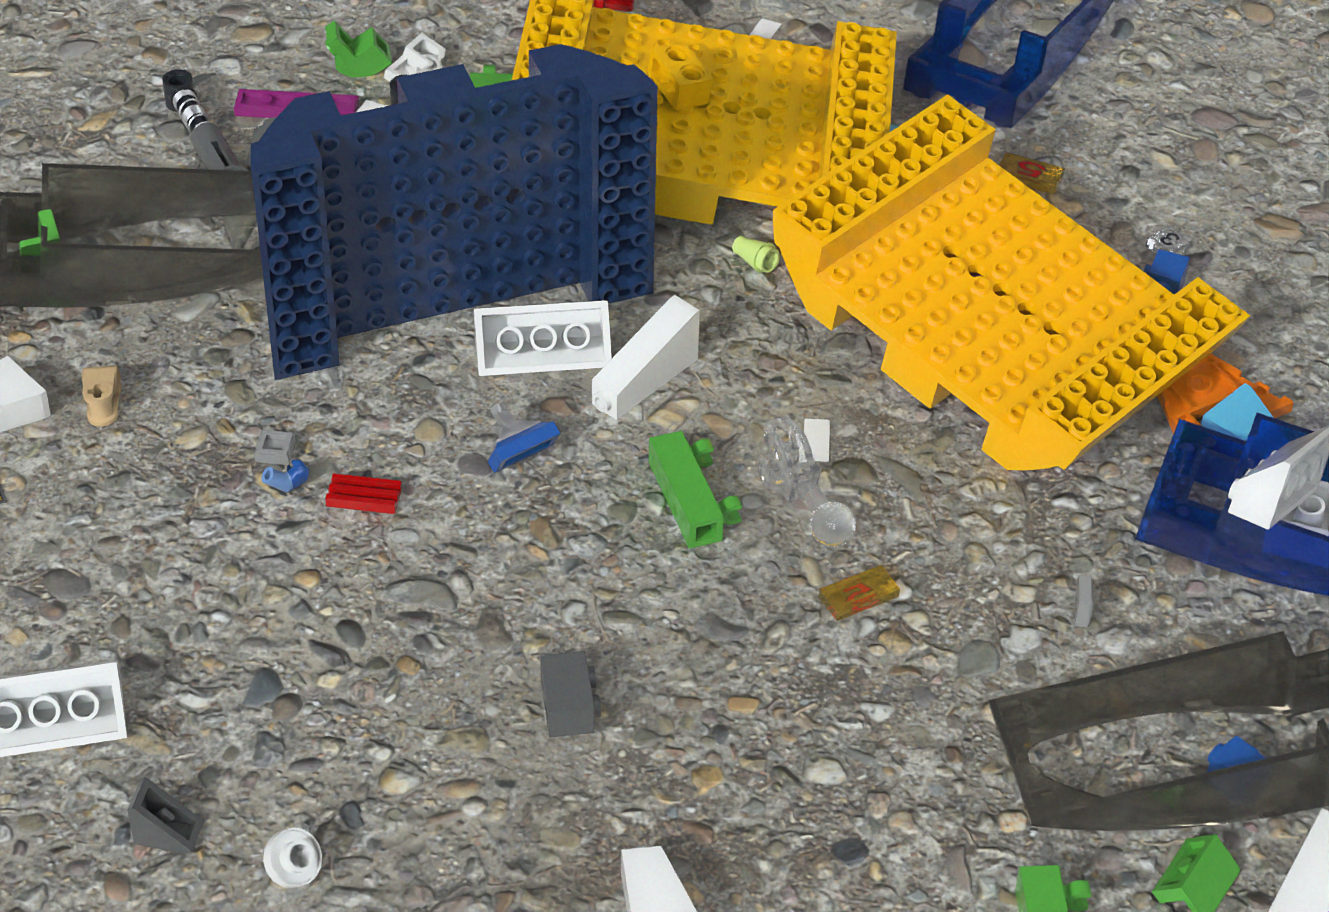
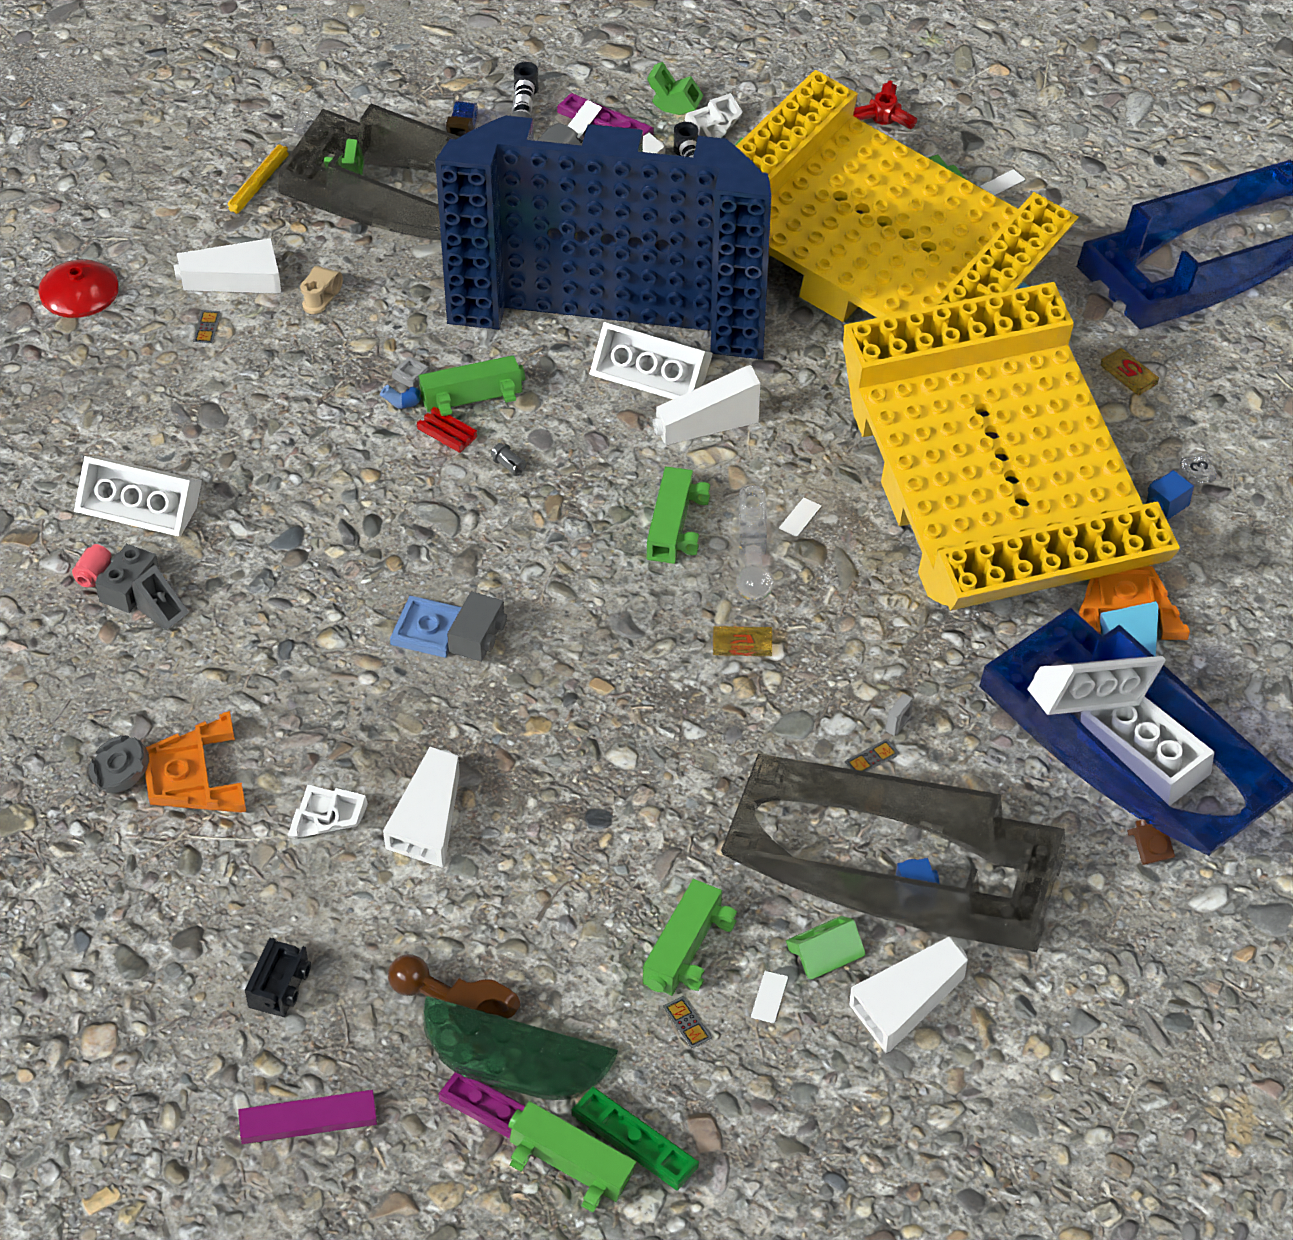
camera: 30 degrees right, 5 degrees up
(47, 814) = (91, 564): none -> coral brick
(101, 811) = (115, 583): none -> dark grey brick
(136, 151) = (462, 118): none -> leg
(274, 104) = (584, 117): none -> white sticker
(292, 858) = (220, 659): white plate -> none
(360, 433) = (471, 384): none -> bright green brick
(459, 498) = (502, 454): none -> dark grey pin
(503, 719) = (424, 626): none -> medium blue tile
(518, 438) = (576, 431): blue piece -> none
(680, 75) = (874, 194): yellow brick -> none
(1082, 658) = (872, 756): none -> sticker

